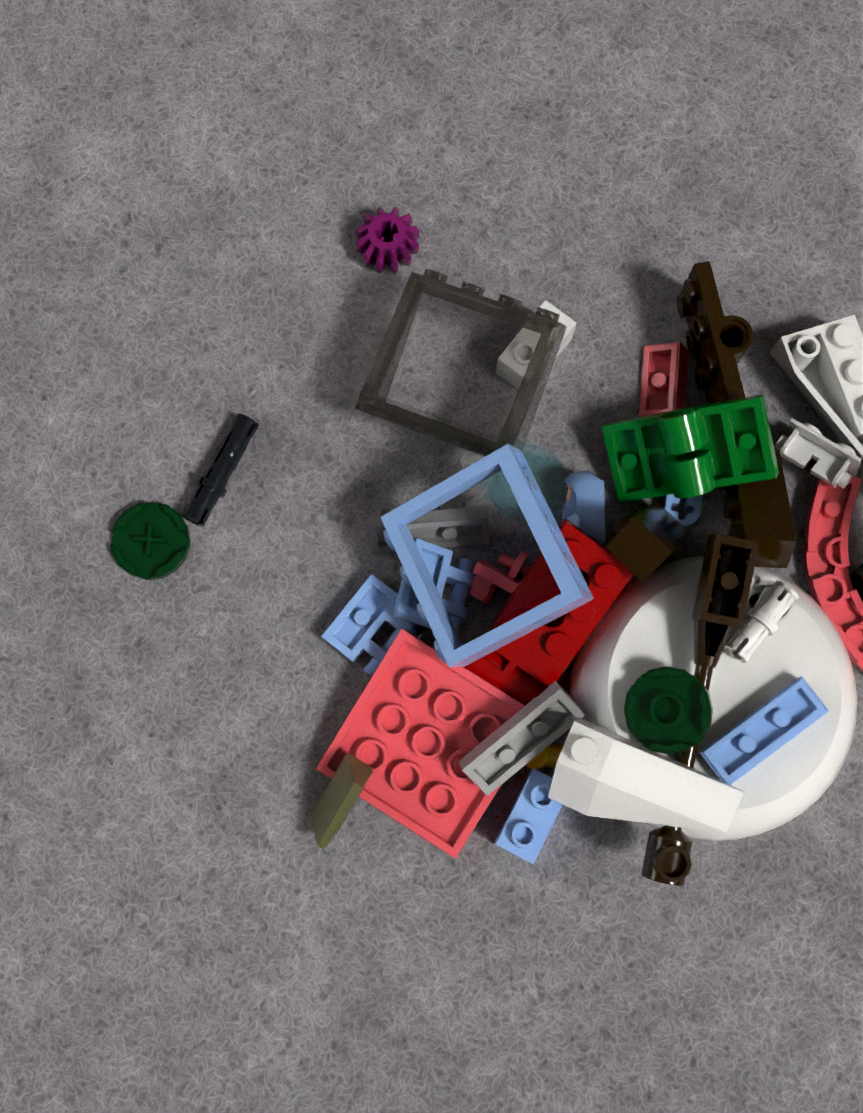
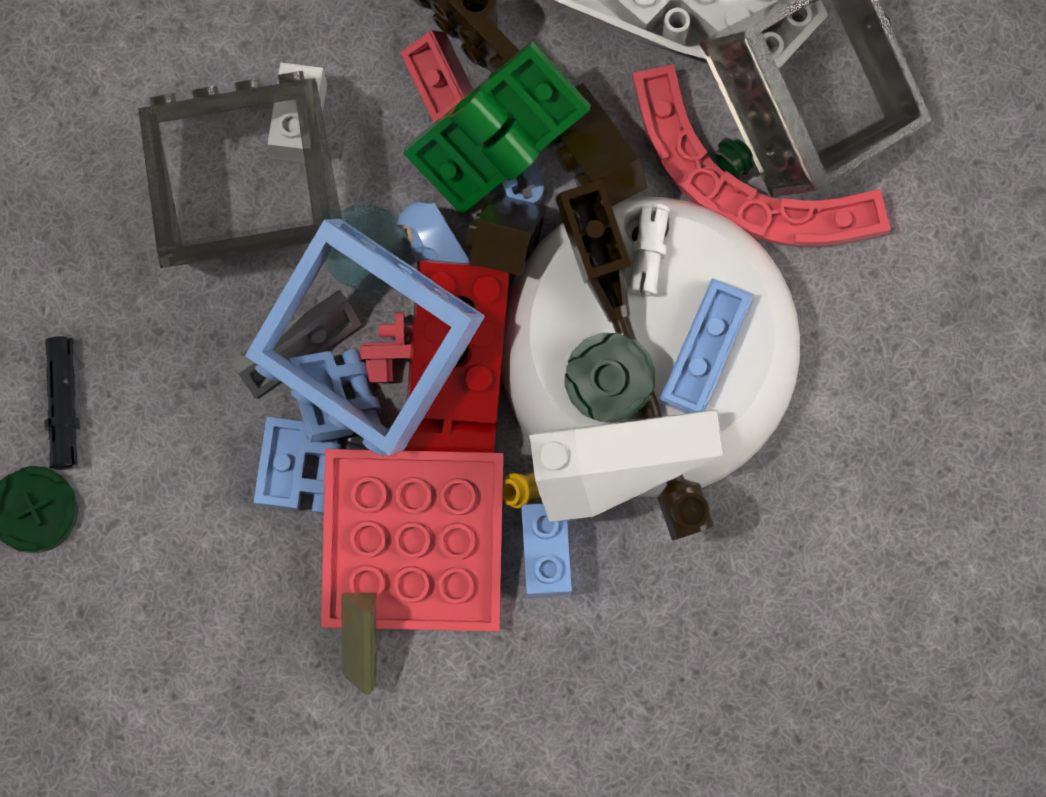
camera: 30 degrees left, 0 degrees up
(402, 242) = (82, 101): magenta gear -> none
(521, 738) = (493, 483): light grey hinge -> none
(835, 461) = (602, 59): white hinge -> none

